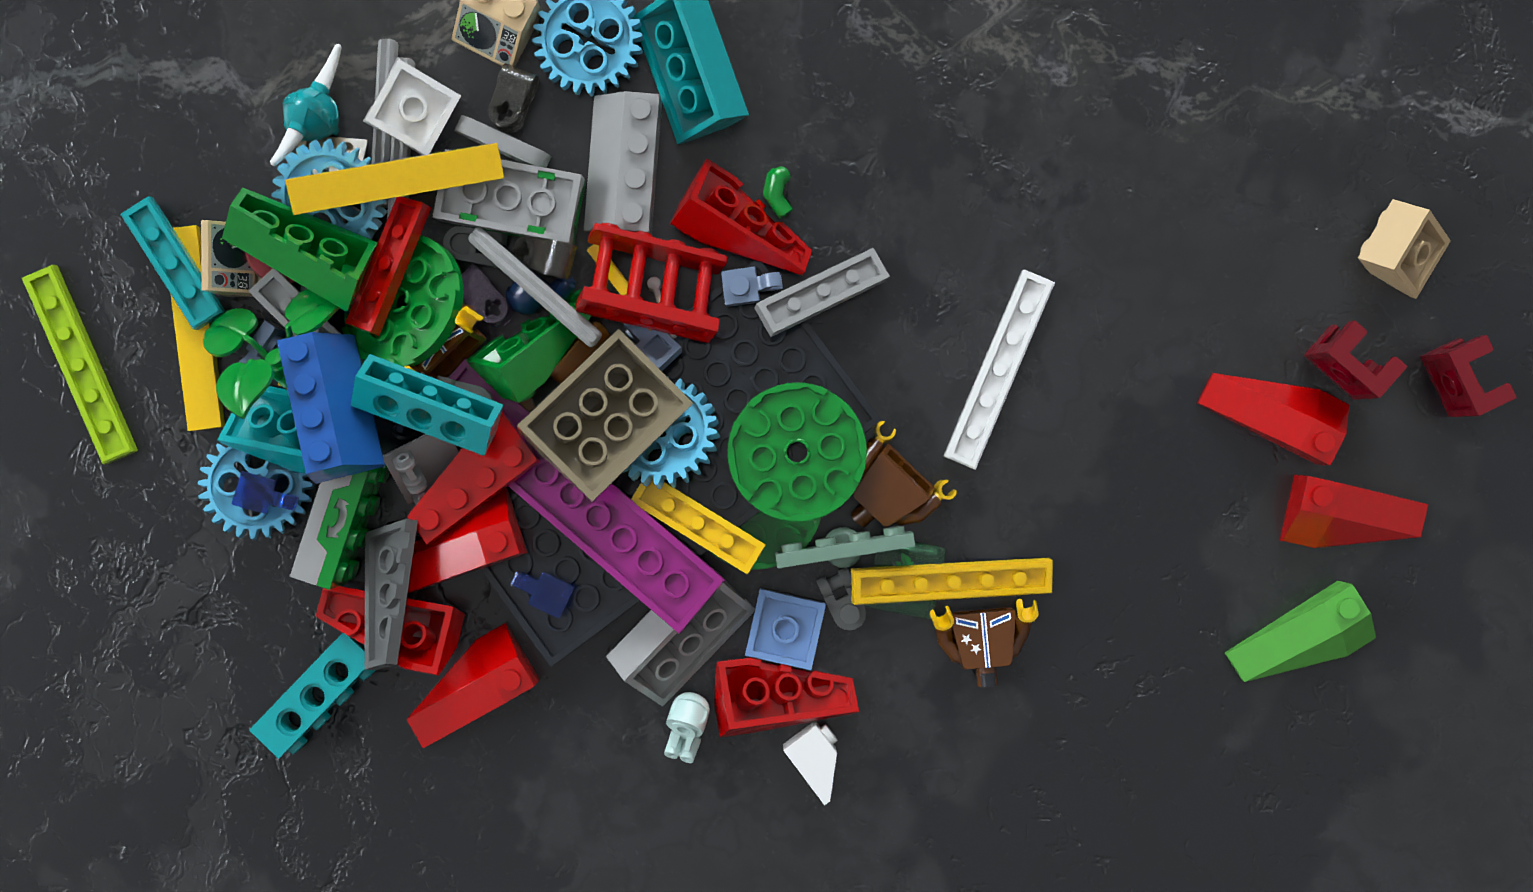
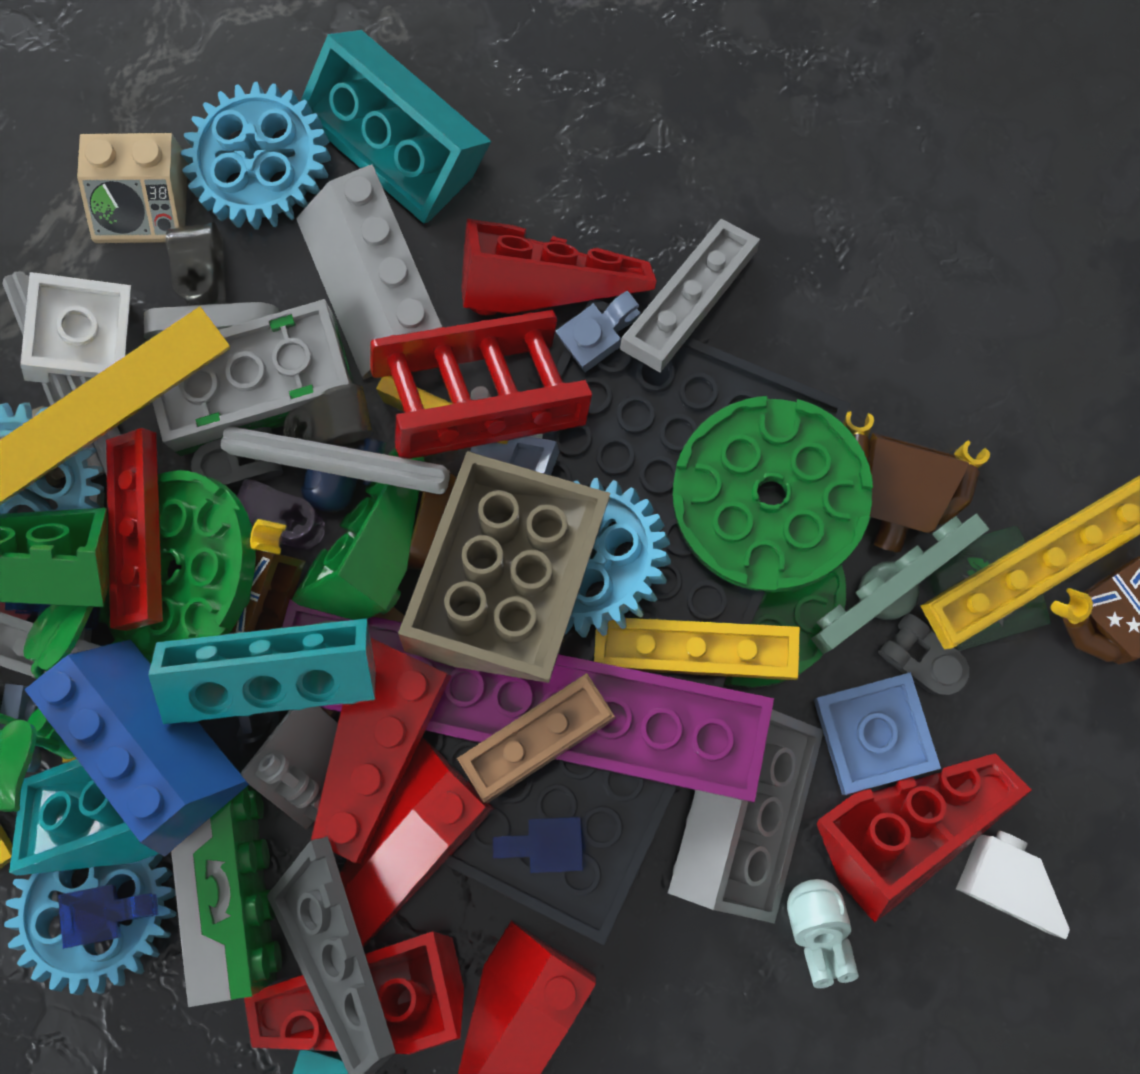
camera: 25 degrees left, 10 degrees down
(571, 527) = (536, 738): none -> medium nougat tile
(774, 188) = (567, 217): green arm -> none
(999, 369) = (949, 286): white tile -> none

